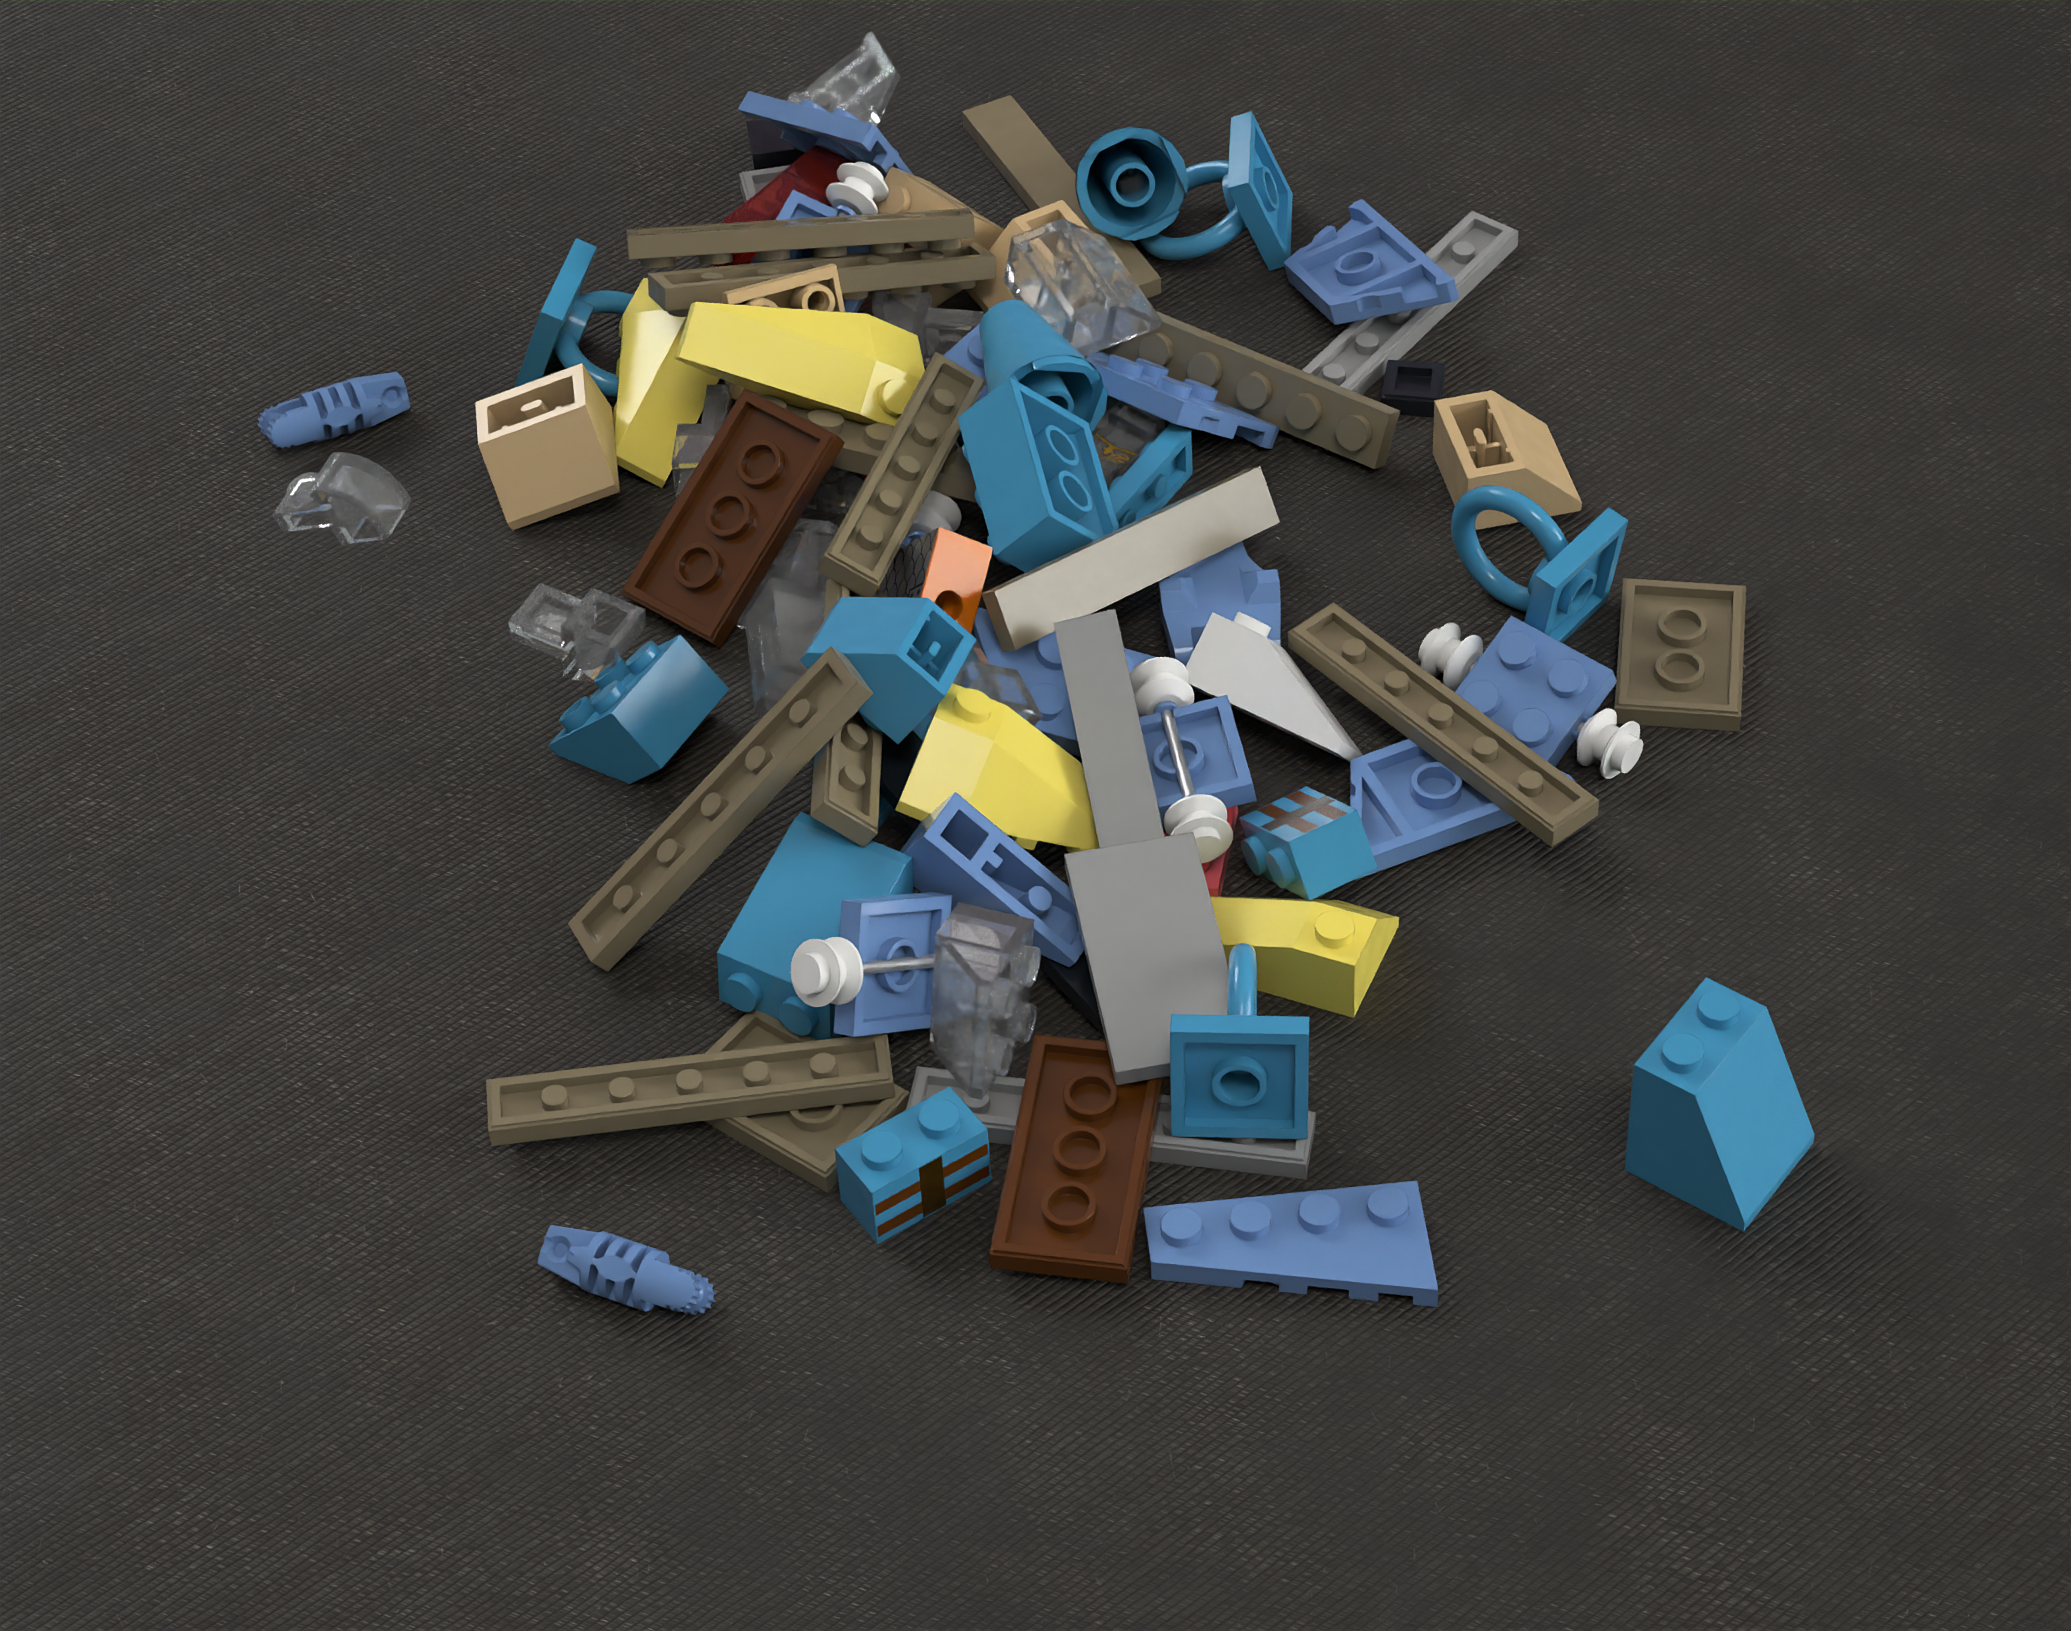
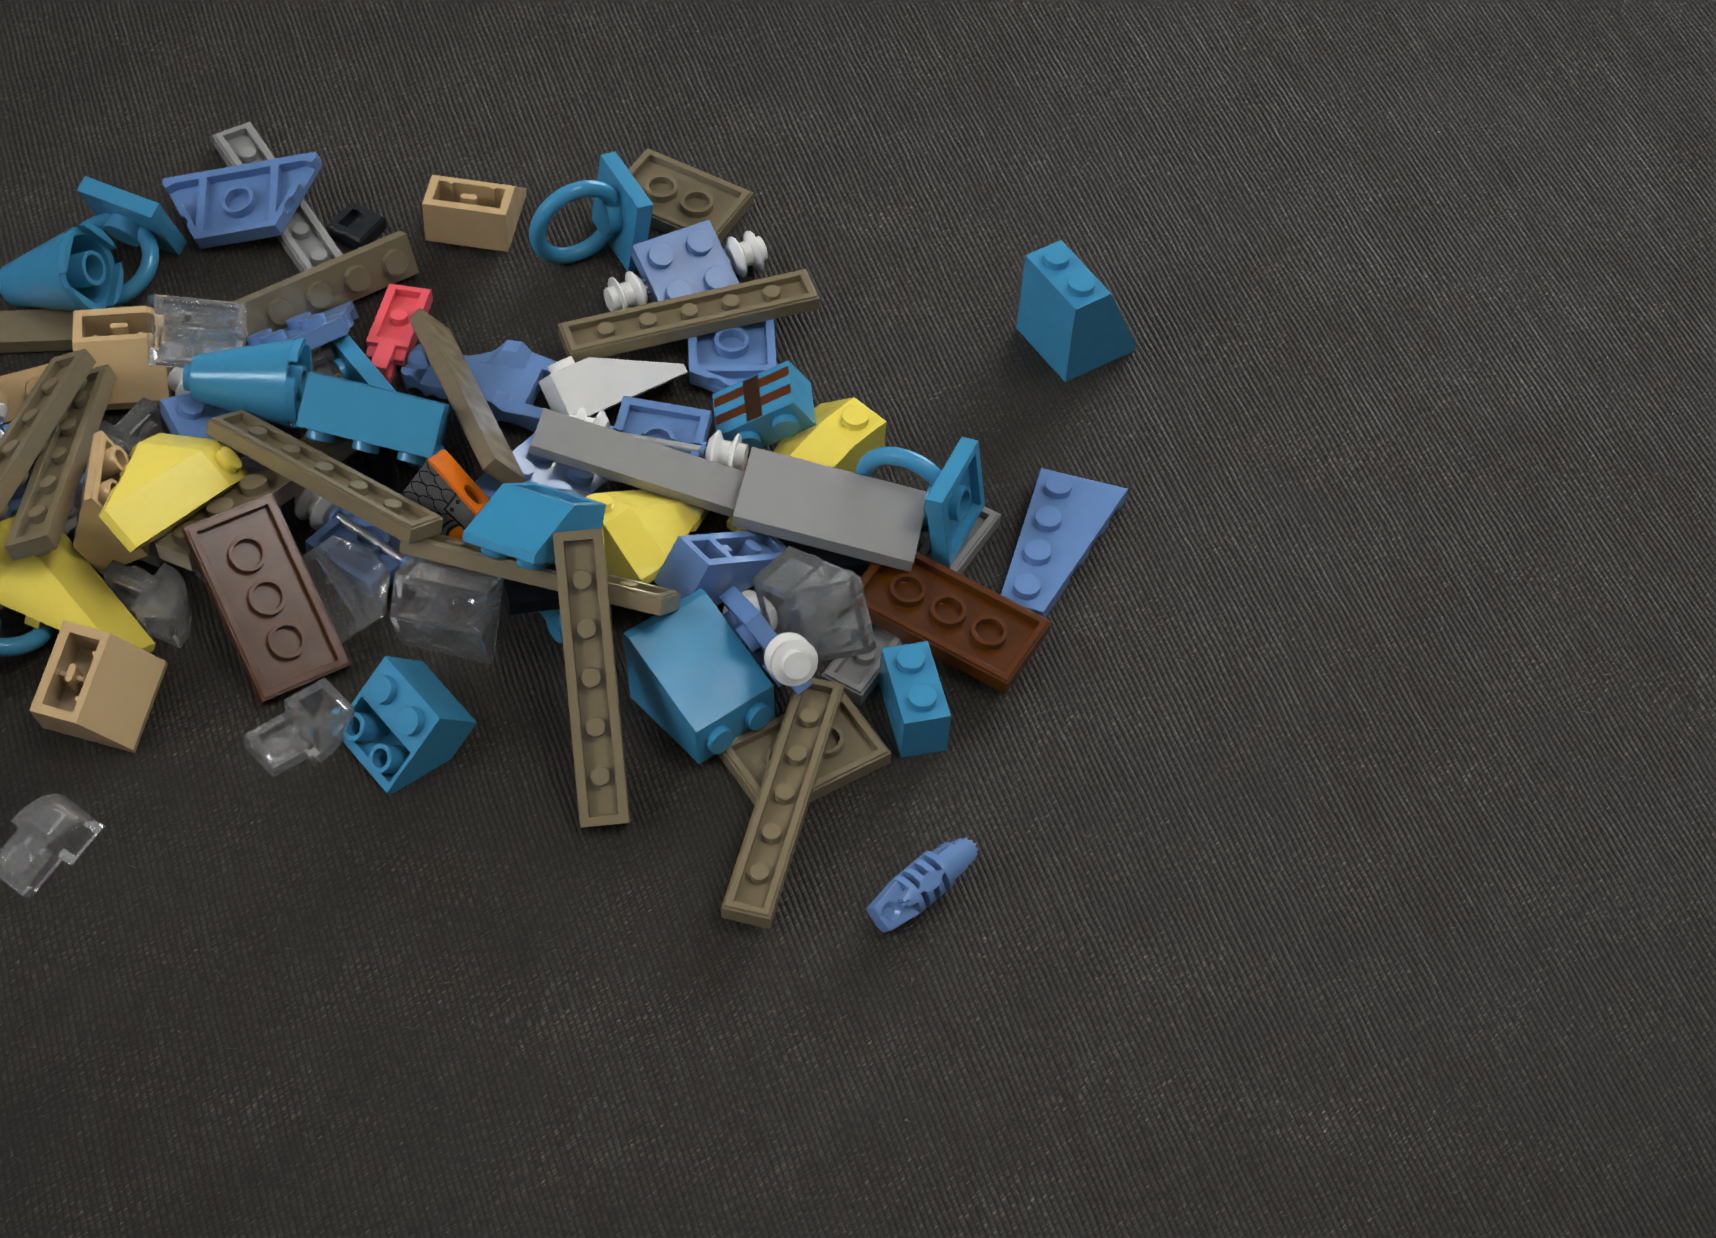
camera: 75 degrees left, 5 degrees up
(1290, 472) = (391, 332): none -> coral hinge

